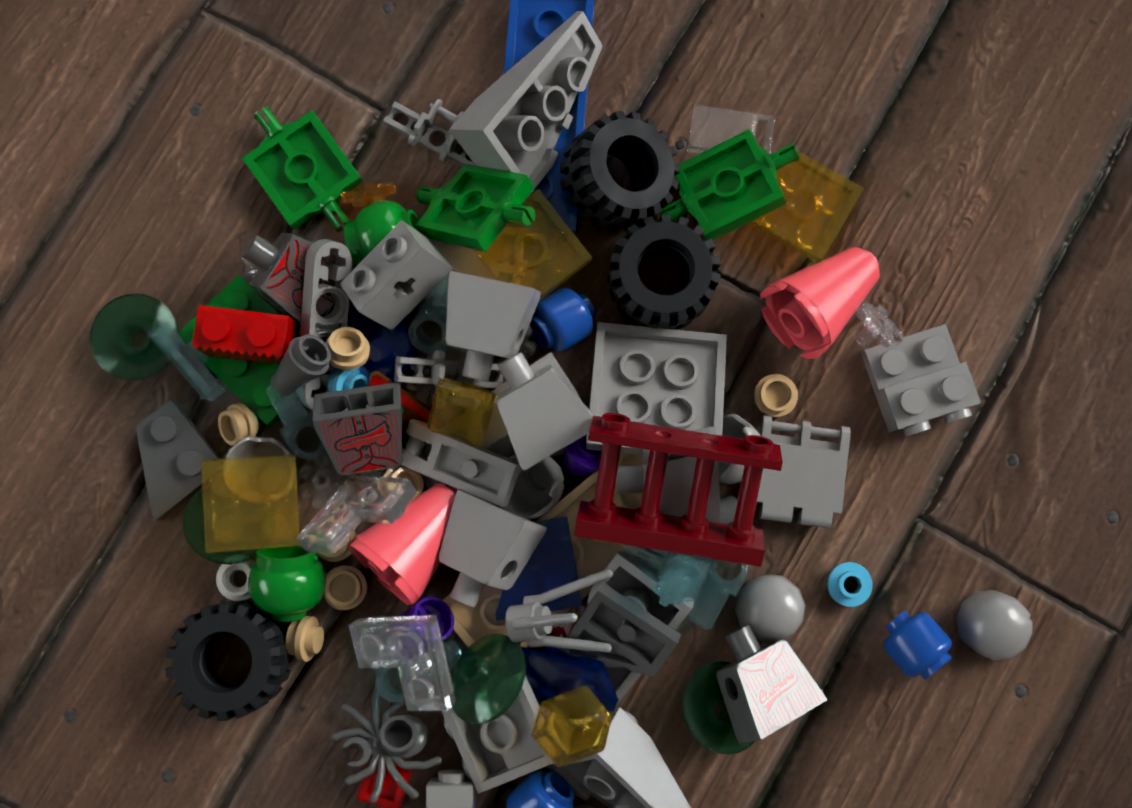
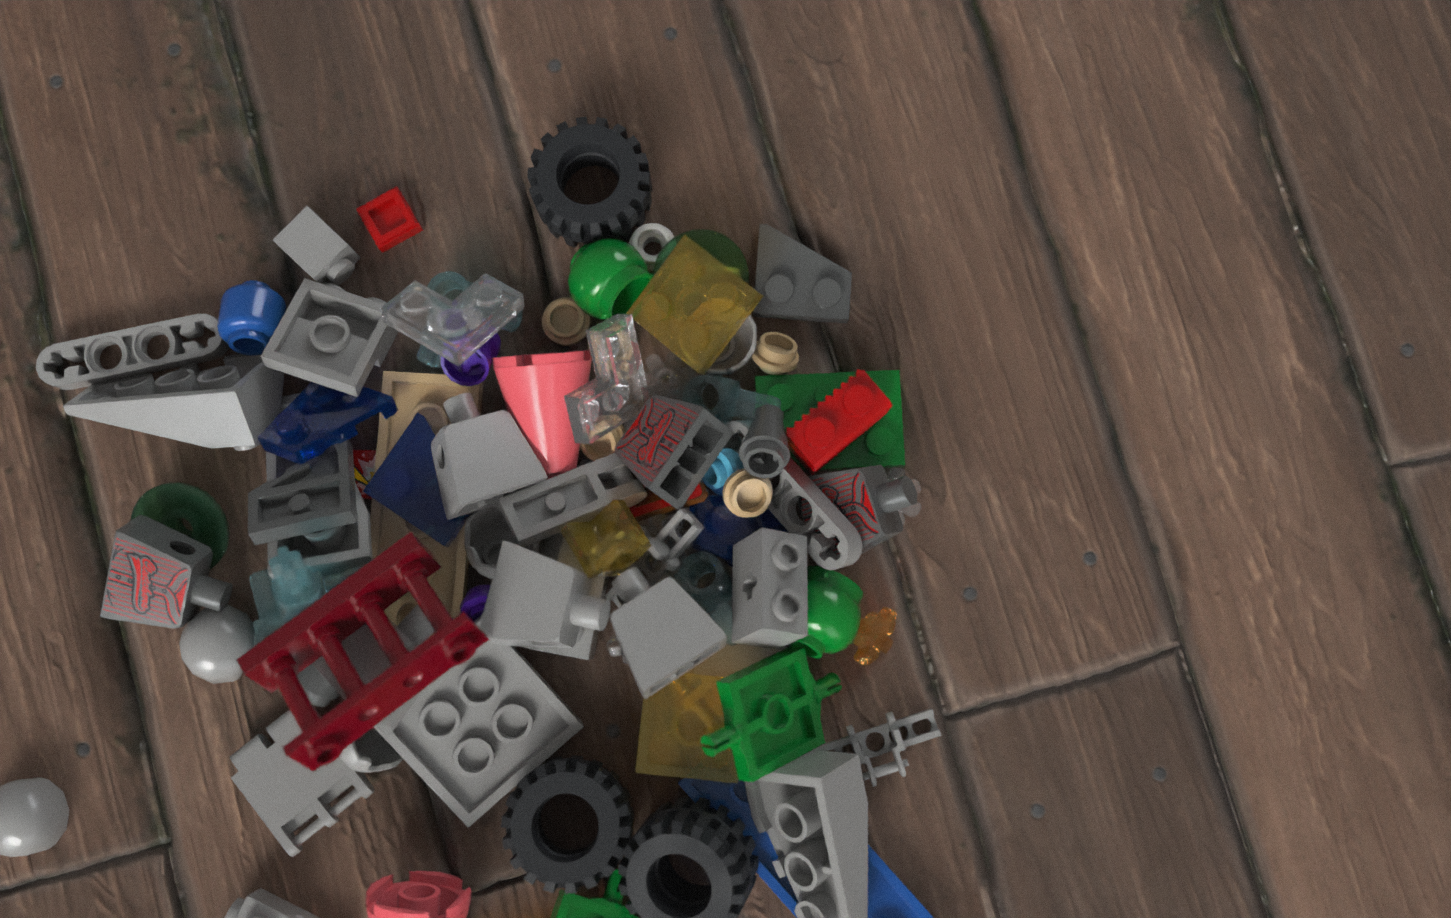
camera: 135 degrees right, 0 degrees up
(115, 331) = (941, 317): clear green dish -> none
(187, 360) = (864, 357): clear light blue plate -> none
(302, 169) = (949, 599): green plate -> none
(304, 638) = (554, 254): tan plate -> none
(383, 744) = (411, 244): dark grey animal -> none
(488, 678) = (366, 374): clear green dish -> none
(533, 621) = (381, 438): light grey plant -> none
(562, 320) = (611, 699): blue head -> none
(572, 726) = (273, 393): clear yellow panel -> none
(775, 395) = (380, 820): tan plate -> none
(836, 588) = (187, 728): medium azure plate -> none
(917, 644) = (70, 735): blue head -> none

